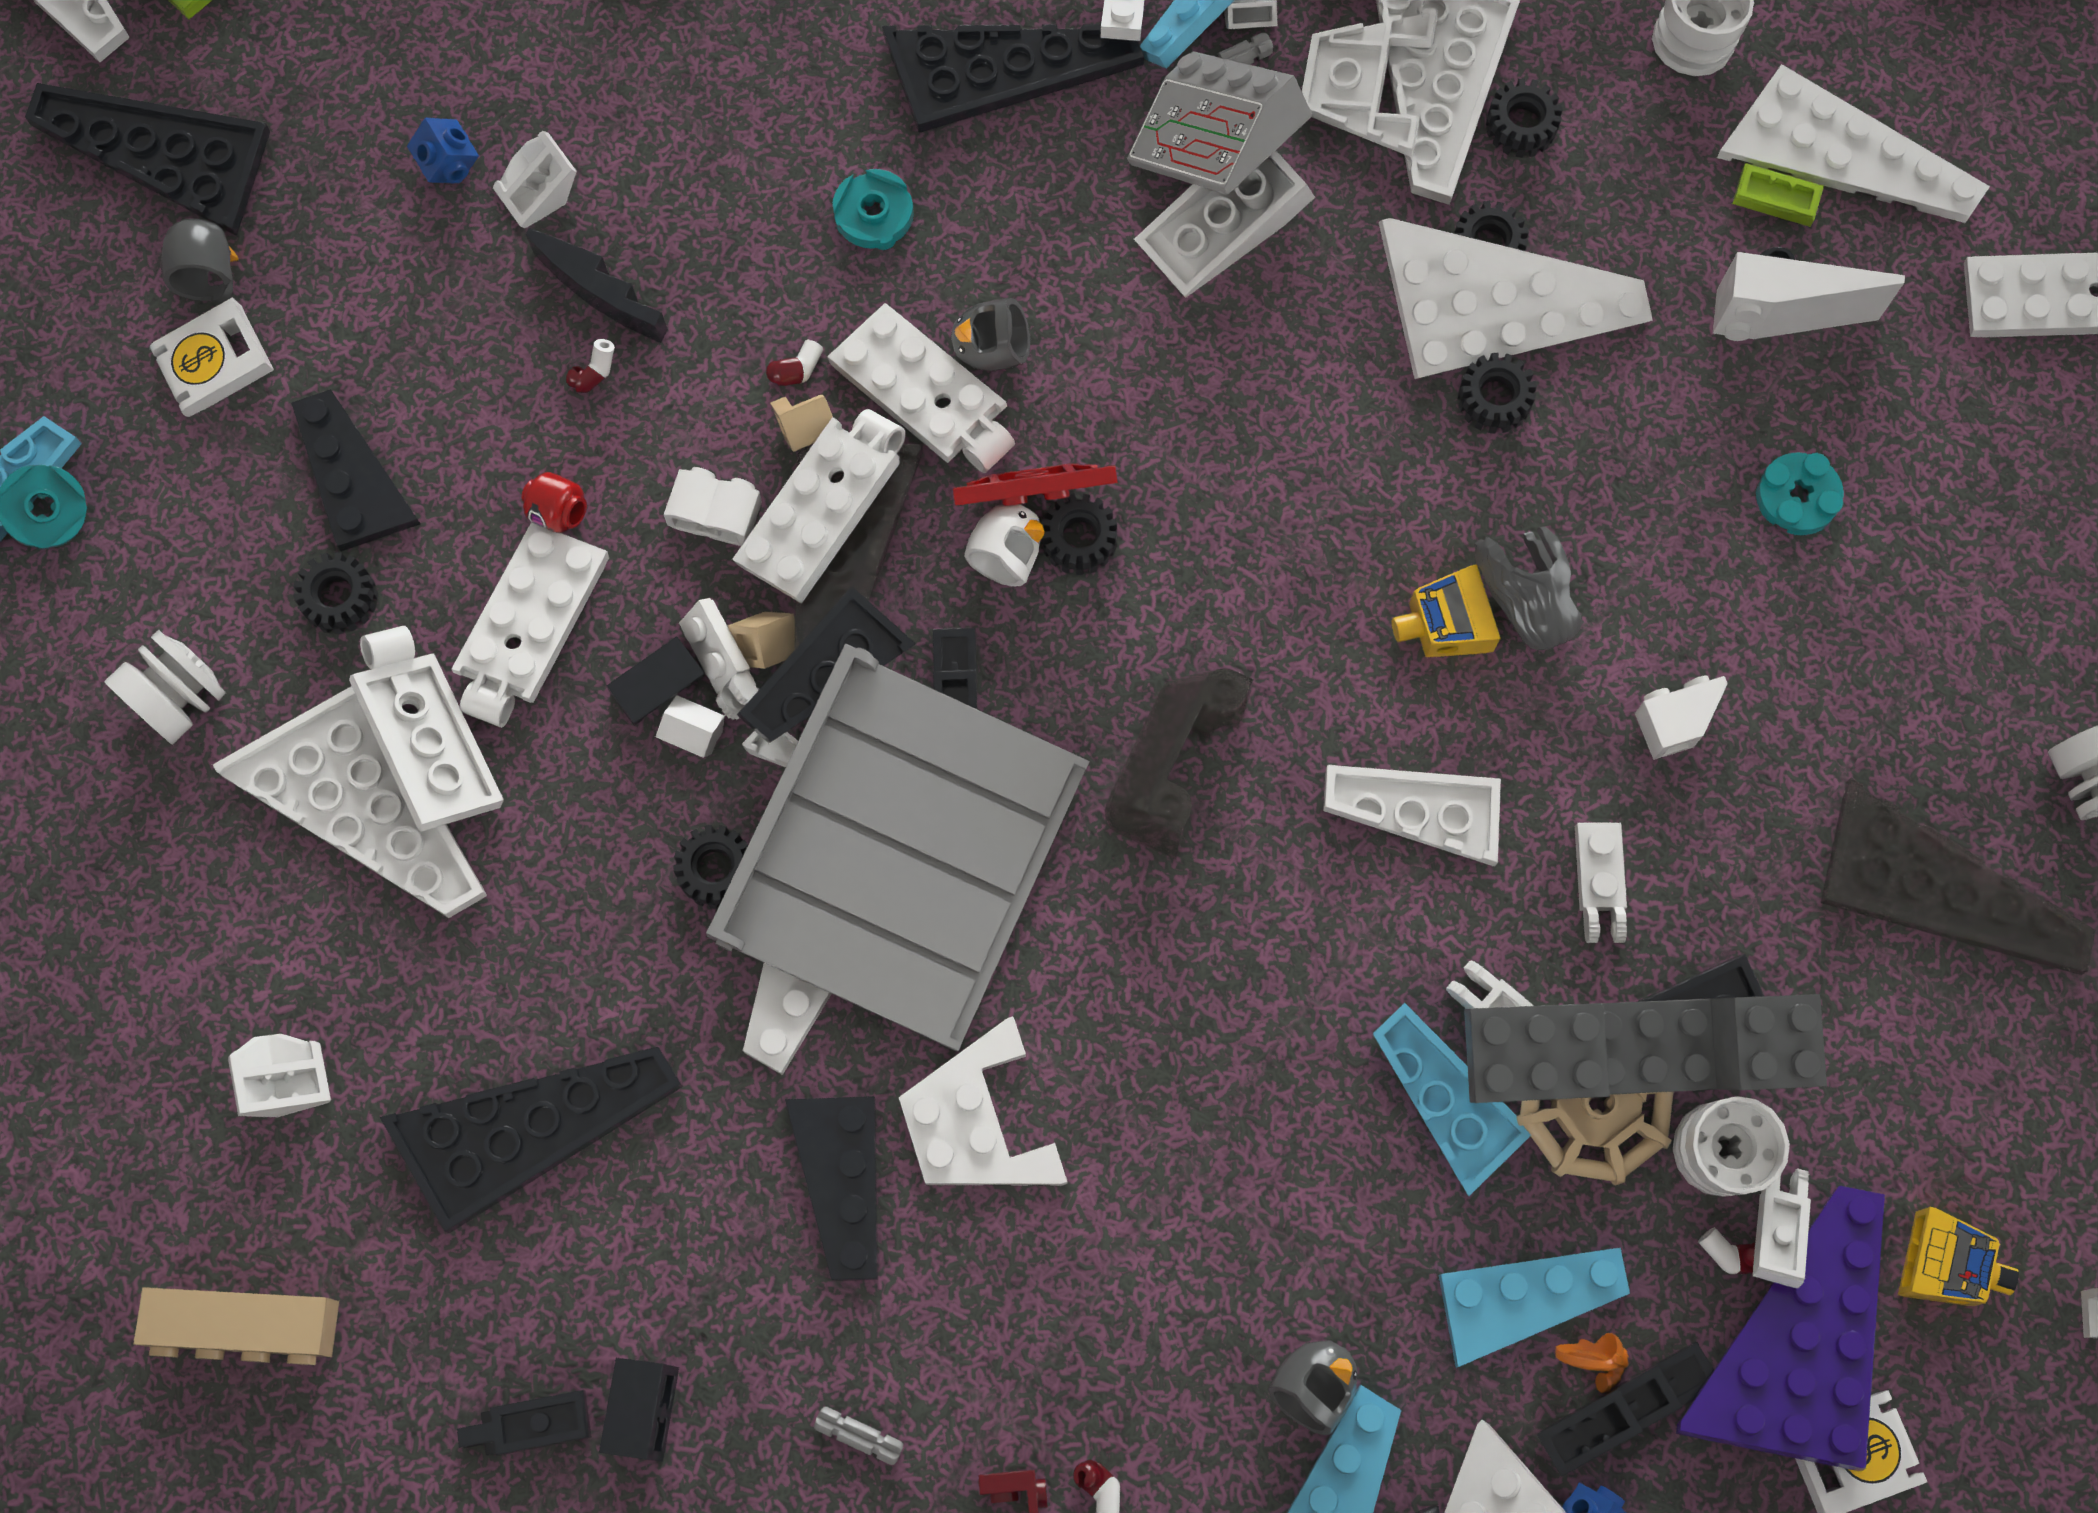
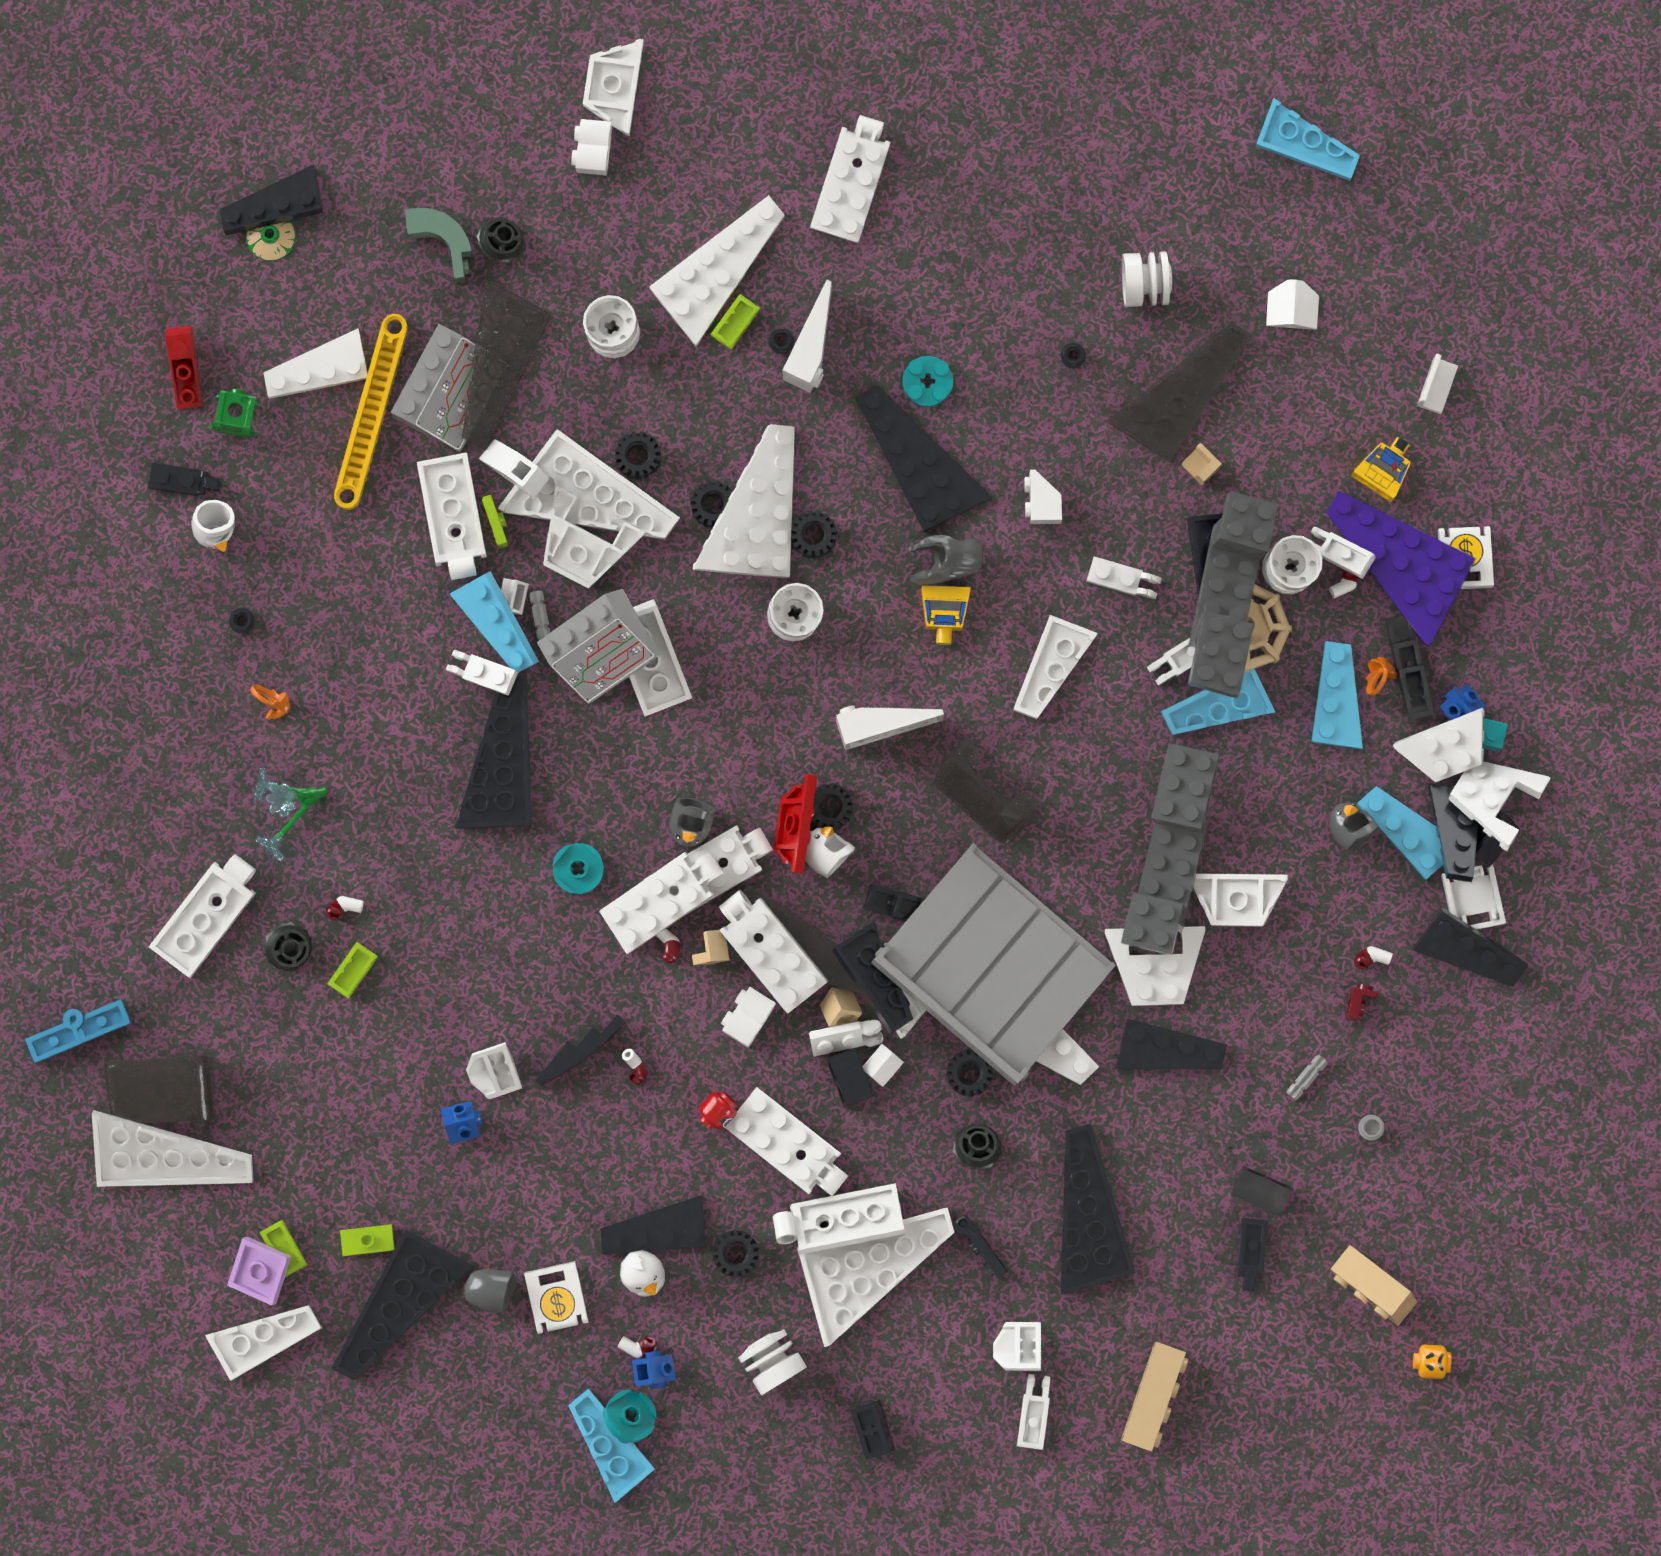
camera: 75 degrees left, 10 degrees up
(93, 879) = (873, 1429): none -> black hinge
(121, 521) = (654, 1370): none -> blue brick
(156, 496) = (639, 1348): none -> arm
(169, 1132) = (1034, 1415): none -> white hinge
(242, 84) = (367, 1240): none -> lime plate
(273, 458) = (642, 1273): none -> white piece
(432, 966) = (980, 1246): none -> black hinge
(584, 917) = (977, 1154): none -> pearl dark grey piece
(841, 317) = (652, 906): none -> white hinge
(1132, 1223) = (1238, 897): none -> white wing
(1176, 1091) = (1174, 850): none -> dark grey bracket
(1224, 547) = (873, 724): none -> white slope
(1365, 369) = (802, 599): none -> white wheel
(1655, 531) = (926, 473): none -> black wing
(1837, 954) = (1201, 464): none -> tan panel
(1938, 689) = (1073, 347): none -> black plate

